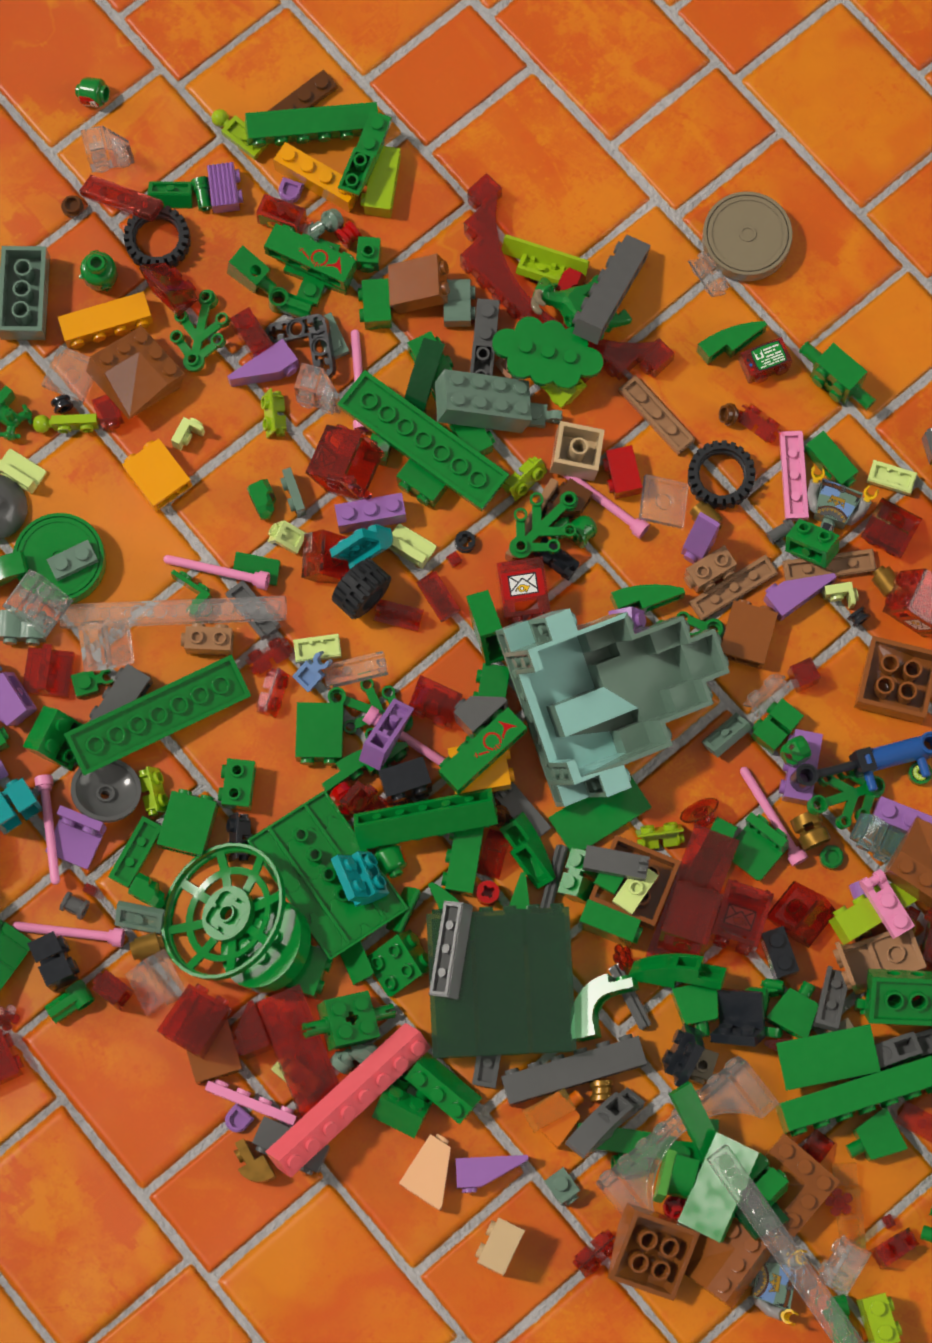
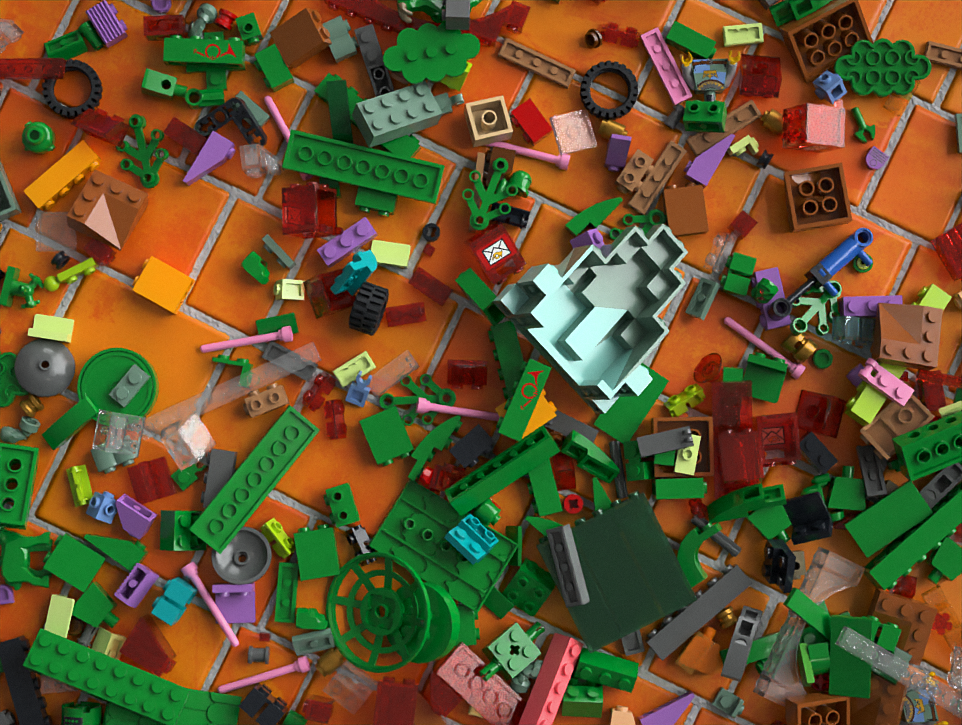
camera: 30 degrees left, 10 degrees up
(183, 433) = (169, 242): yellowish green bracket -> none
(272, 421) = (236, 202): lime hinge -> none
(385, 734) = (441, 417): medium lavender slope -> none
(477, 711) = (507, 371): dark grey slope -> none
(532, 471) = (459, 151): lime hinge -> none

